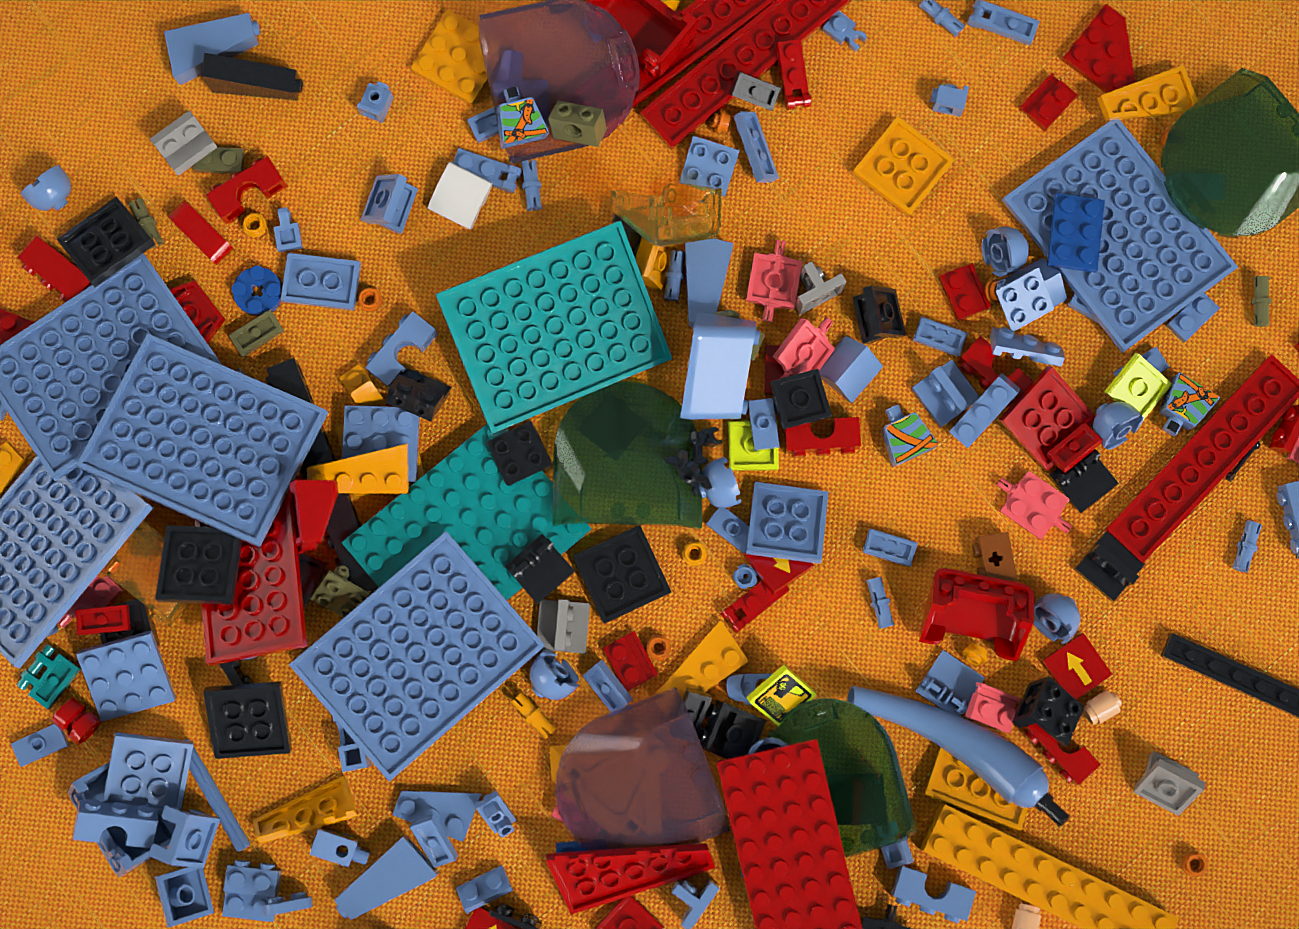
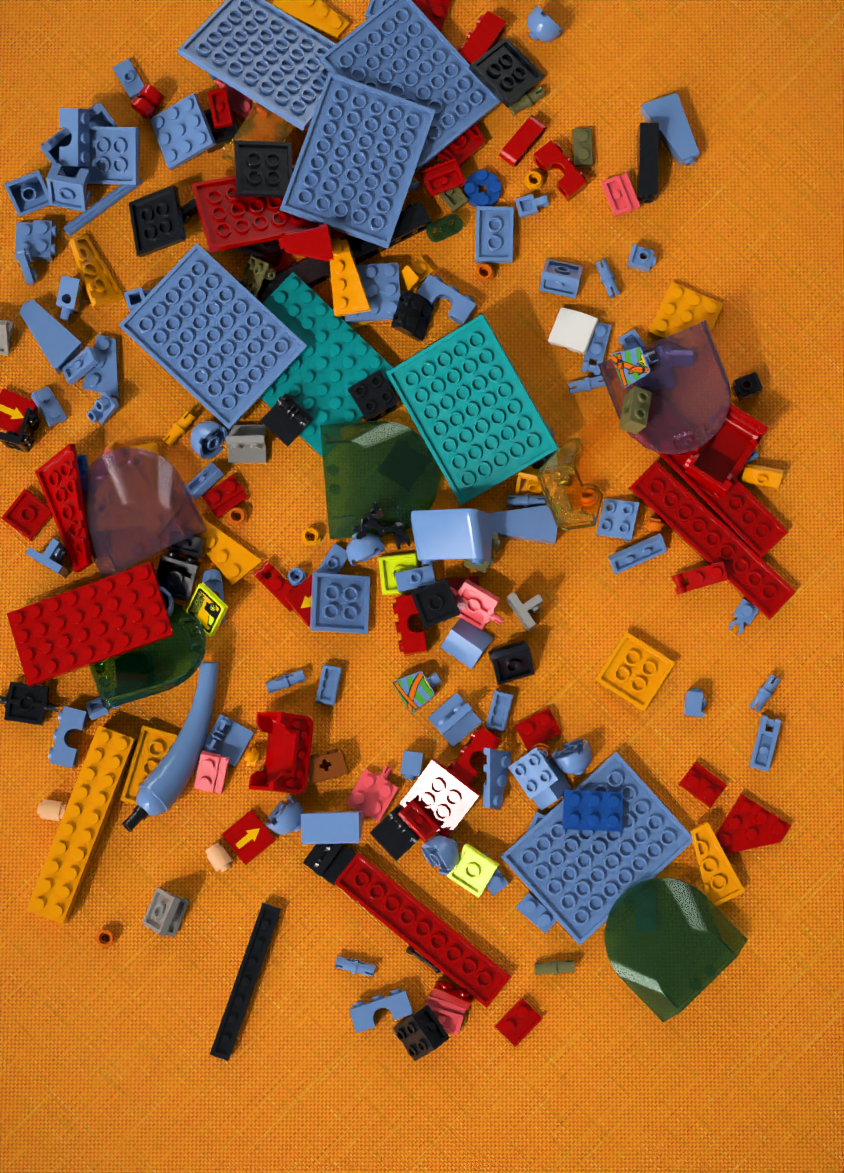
camera: 90 degrees right, 0 degrees up
(54, 680) = (176, 82): teal plate -> none
(183, 143) = (590, 119): light grey bracket -> none
(237, 337) = (443, 177): none -> red plate
(288, 118) = (620, 195): none -> coral plate
(305, 344) = (444, 230): none -> clear green plate
(396, 146) = (607, 278): none -> medium blue pin
(622, 574) = (289, 483): black plate -> none
(680, 197) = (588, 497): none -> orange plate
(754, 91) = (682, 547): plate -> none
(774, 281) = (530, 577): coral plate -> none
(985, 410) = (441, 747): medium blue arch -> none
(1000, 451) = (411, 764): none -> medium blue brick
(1049, 708) = (211, 815): black bracket -> none
(1074, 766) = (173, 838): red arch -> none
(1075, 557) = (331, 827): none -> medium blue slope
(1185, 404) = (463, 909): torso -> none

